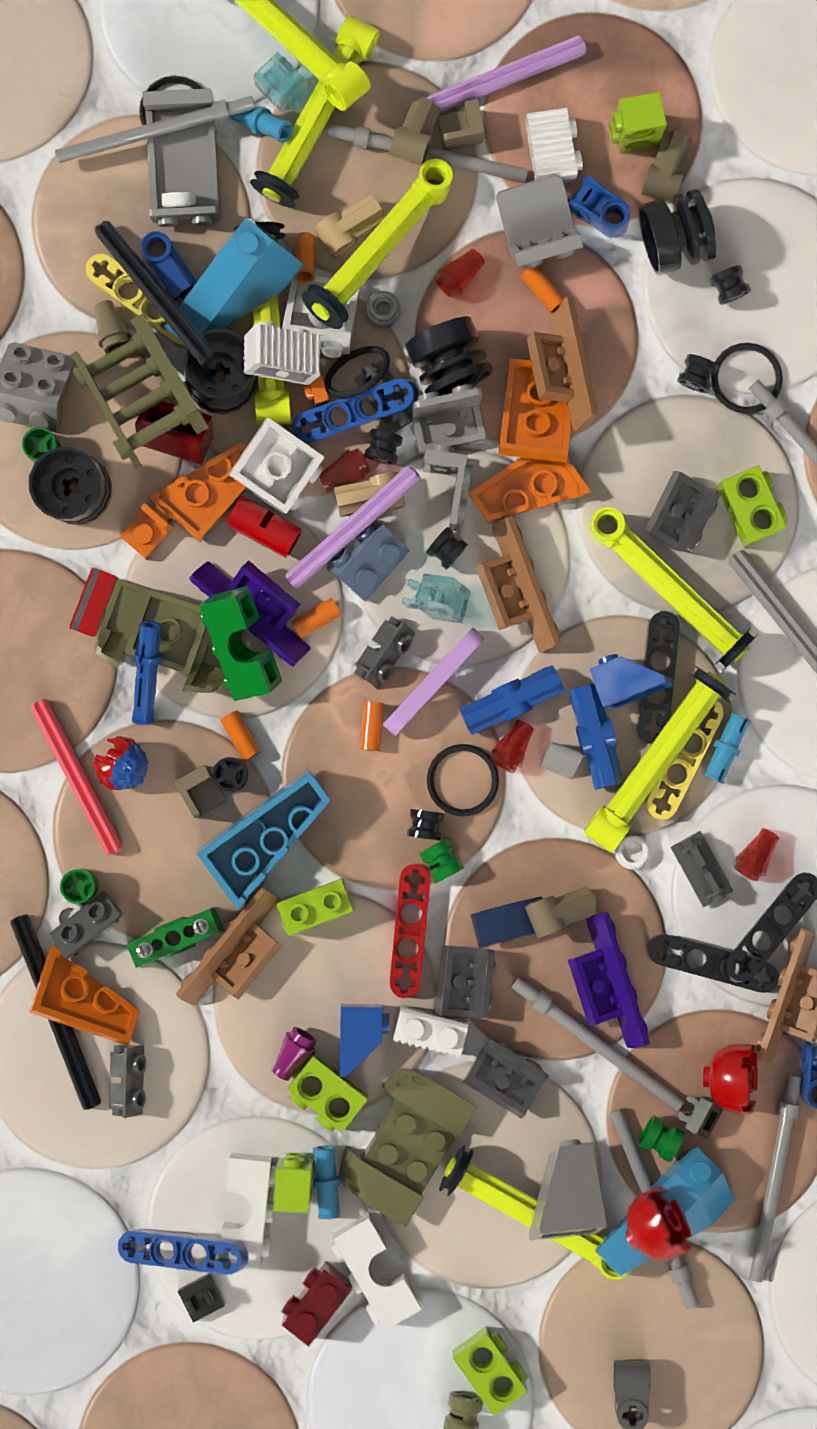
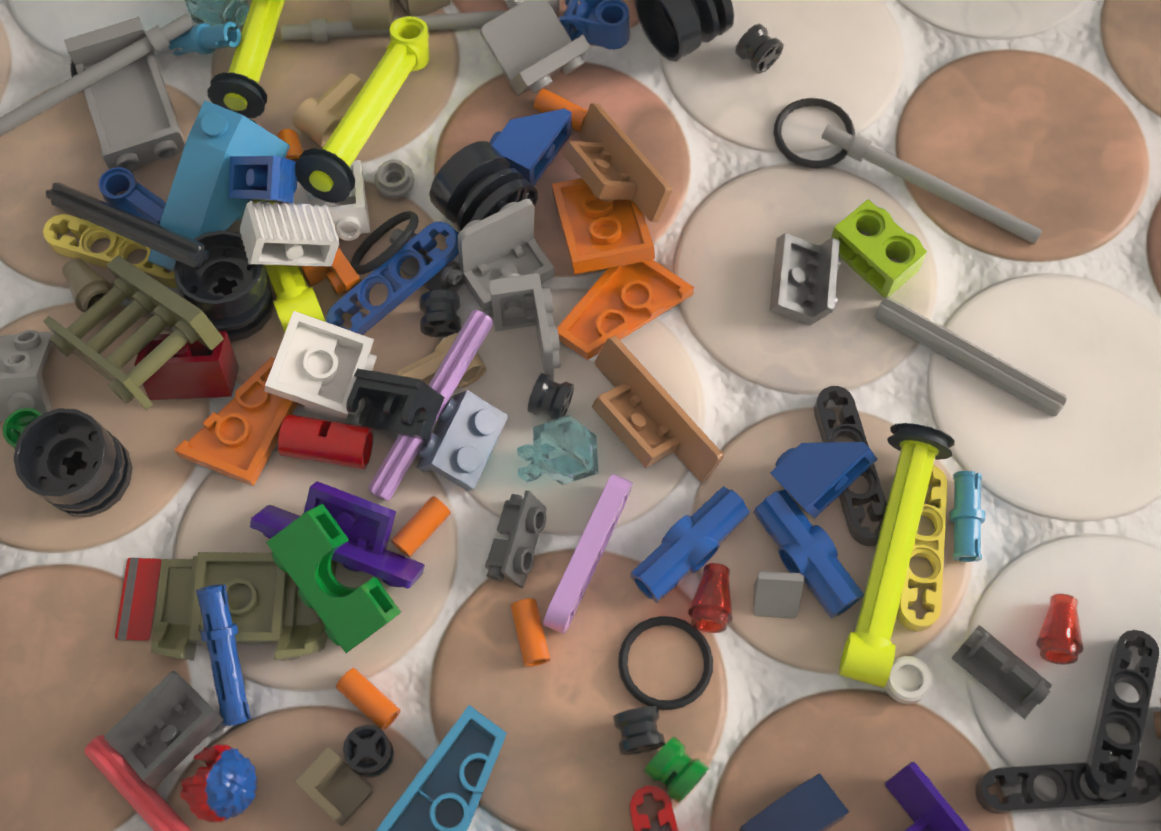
camera: 15 degrees left, 20 degrees down
(91, 711) = (163, 729): none -> flat silver bracket
(147, 530) = (185, 490): orange bracket -> none
(178, 199) = (131, 130): white tile -> none
(274, 300) = (262, 179): none -> blue slope
(324, 521) = (395, 403): none -> black hinge
(345, 470) = (404, 349): clear red cone -> none
(459, 273) = (466, 121): clear red cone -> none
(503, 316) = (533, 141): none -> blue slope
(554, 914) = (848, 787): dark tan piece -> none
(671, 587) = (821, 355): neon yellow piece -> none
(697, 373) = (761, 138): black wheel -> none

